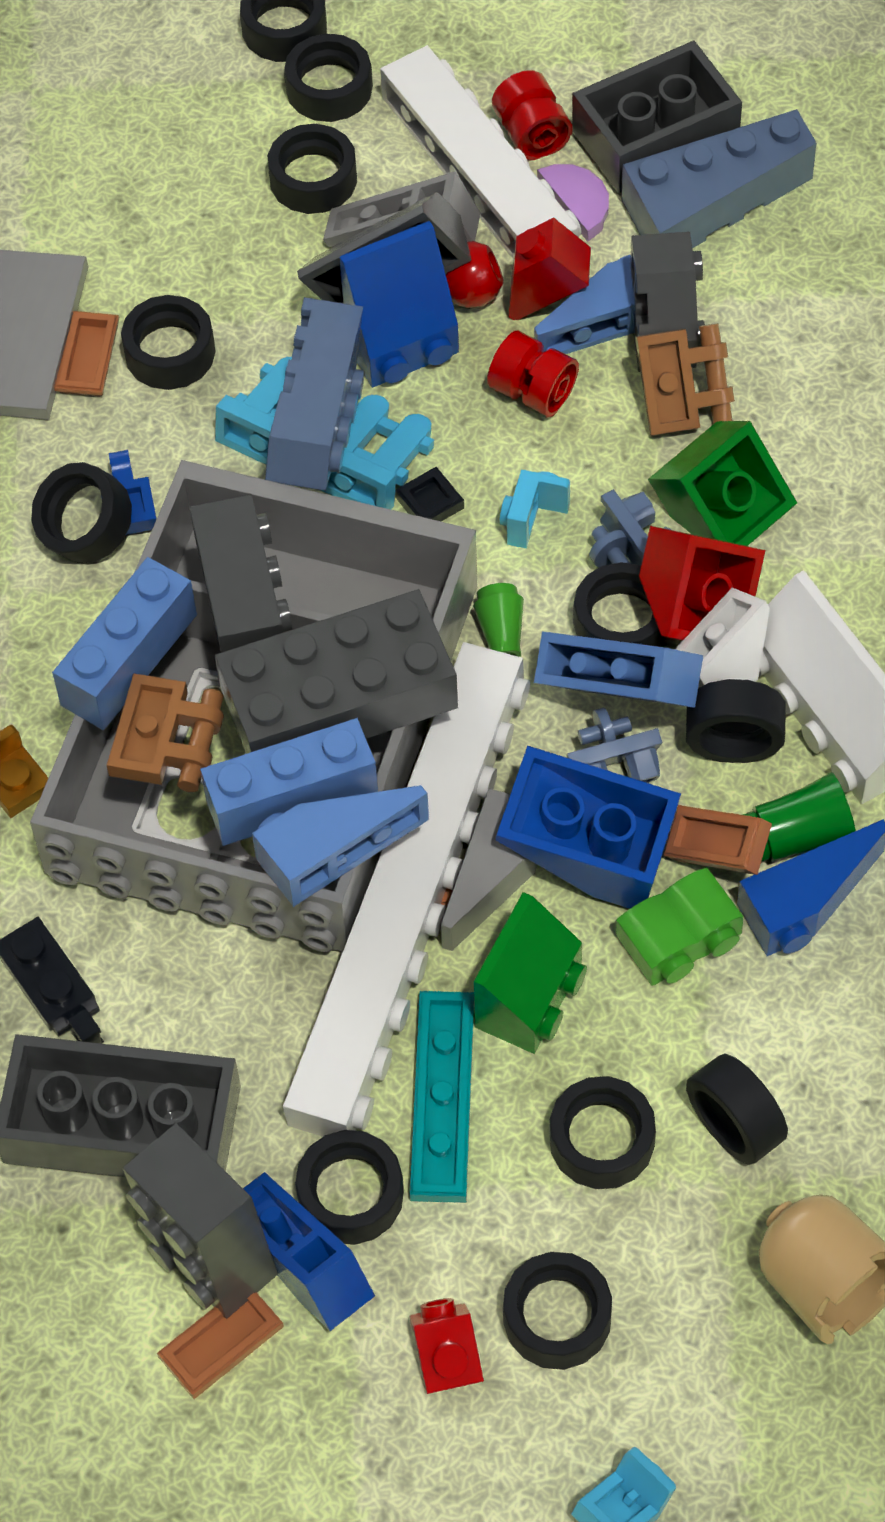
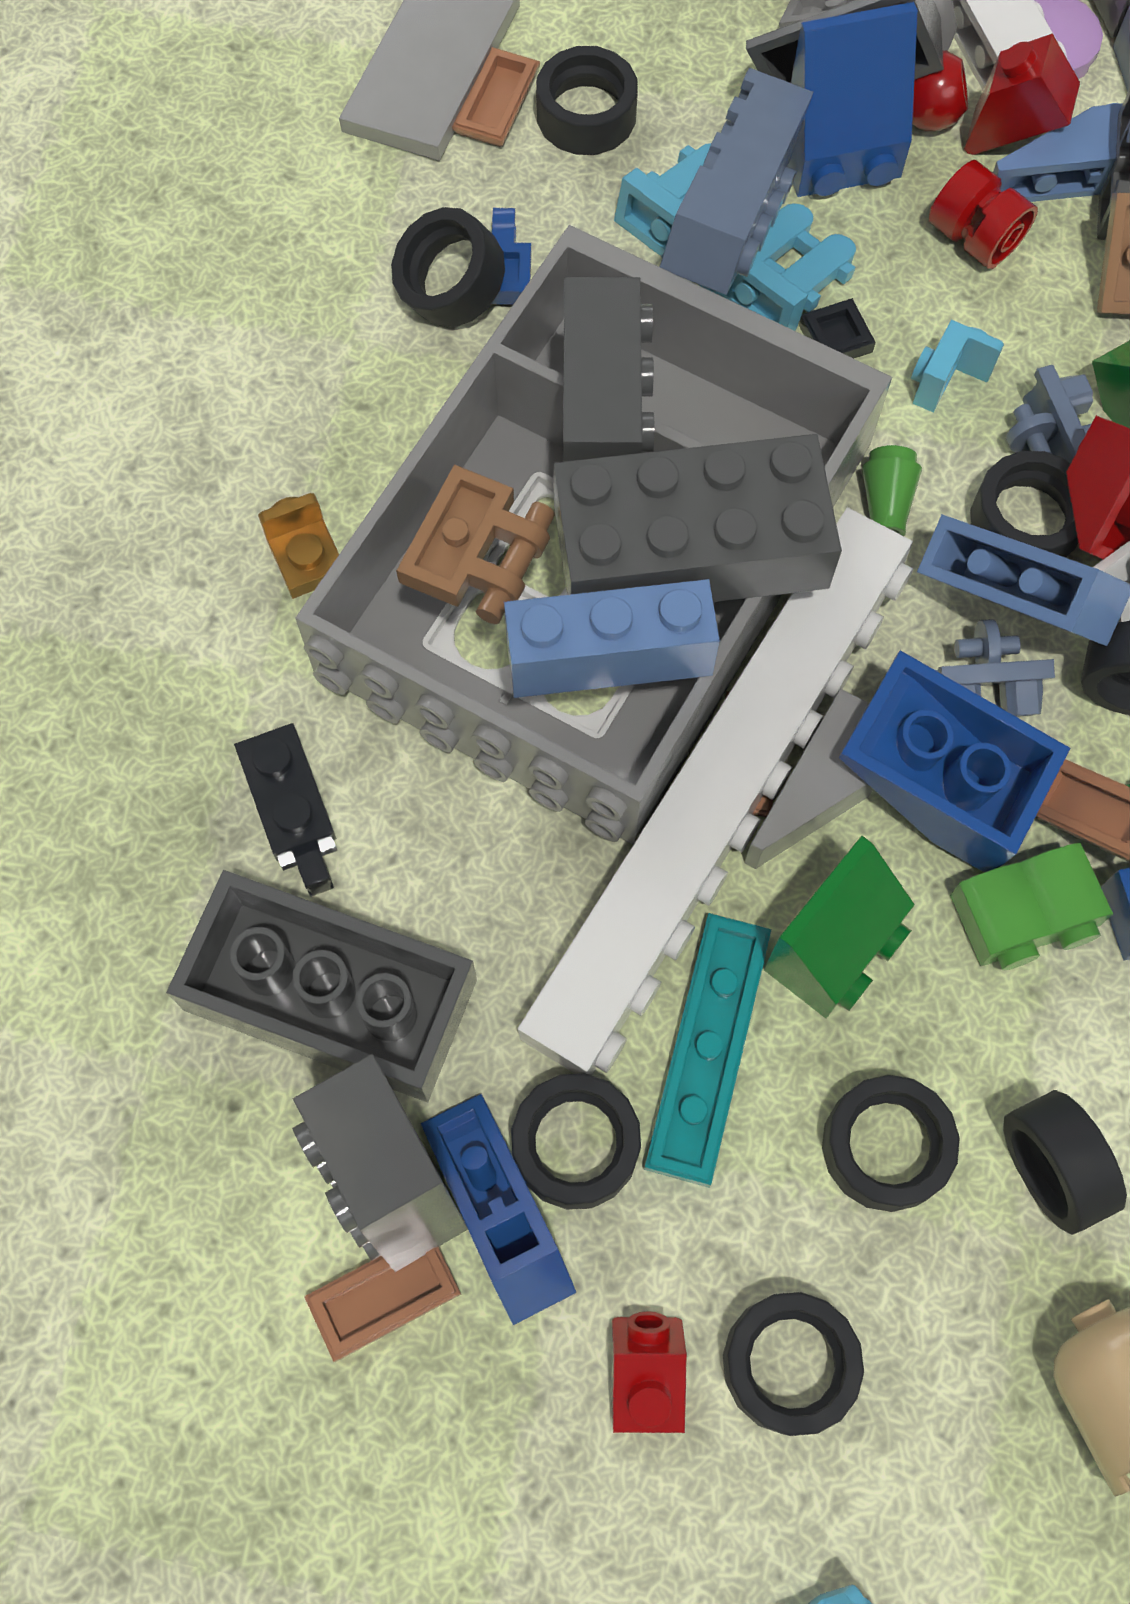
camera: 10 degrees right, 10 degrees up
(123, 641) = (452, 421): medium blue brick -> none
(332, 836) = (639, 719): medium blue slope -> none

